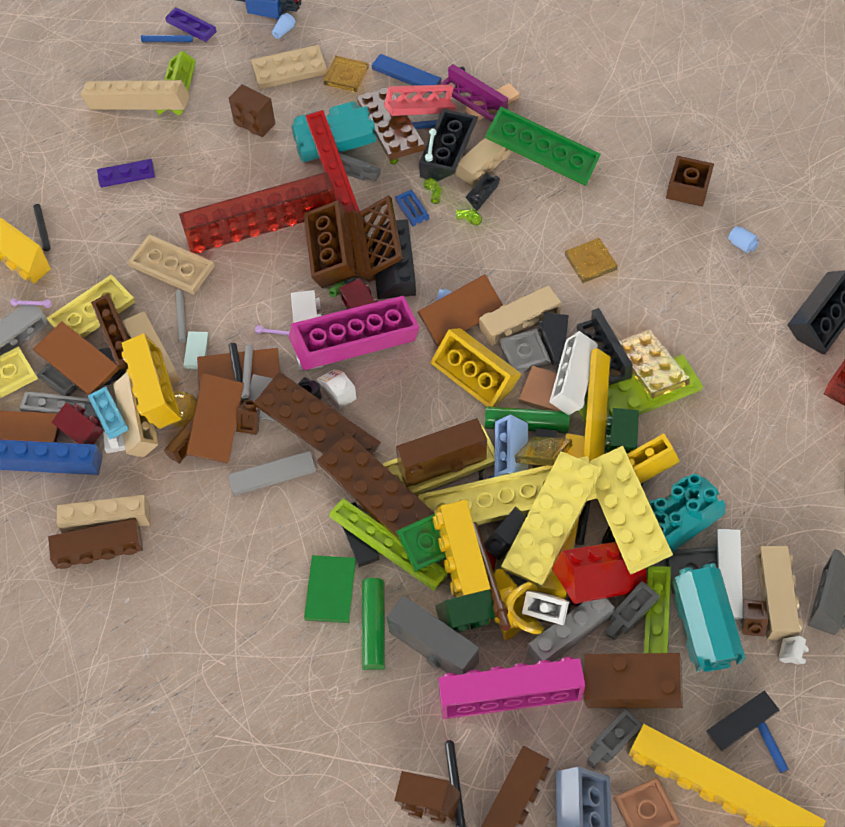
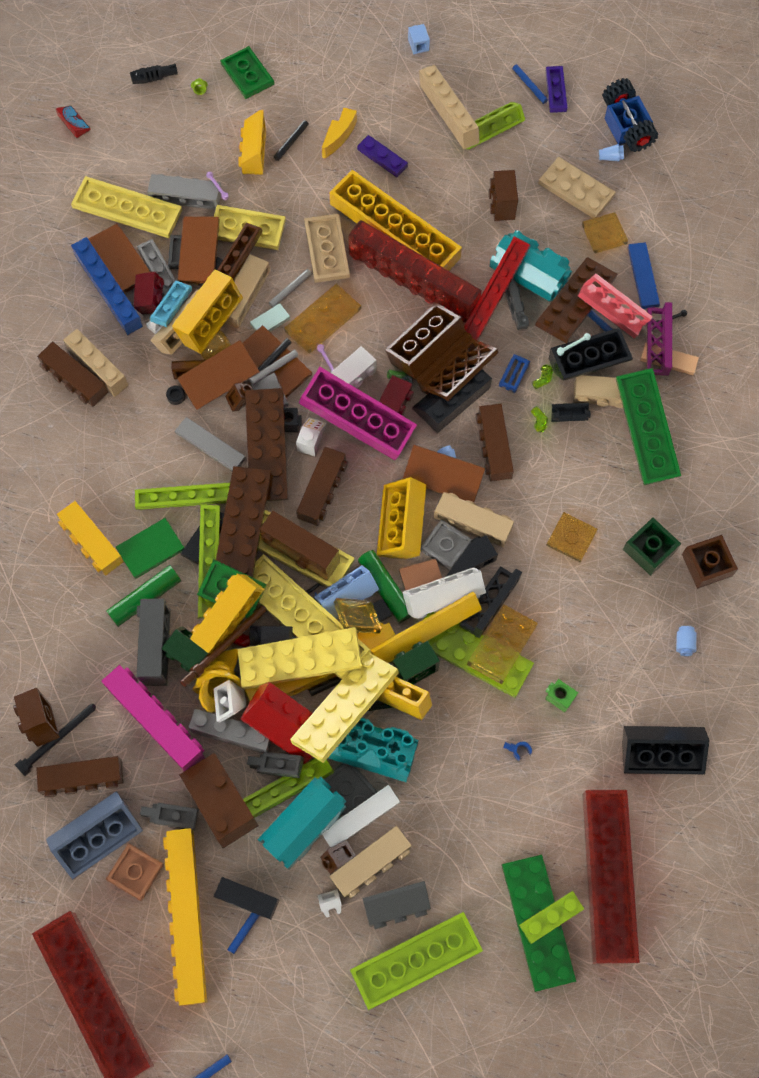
camera: 50 degrees right, 10 degrees up
(48, 80) = (418, 39): none -> light blue brick
(72, 186) = (339, 132): none -> yellow slope
(159, 207) = (366, 202): none -> yellow brick
(197, 471) = (175, 395): none -> black tile
(233, 310) = (322, 318): none -> clear yellow plate
(276, 634) = (90, 538): none -> yellow brick
(303, 526) = (181, 496): none -> lime plate
(392, 407) = (321, 486): none -> reddish brown brick
(463, 256) = (495, 442): none -> reddish brown brick
(646, 209) = (651, 546): none -> dark green brick
(732, 347) = (562, 704): none -> bright green brick
(748, 417) = (513, 748): none -> blue piece

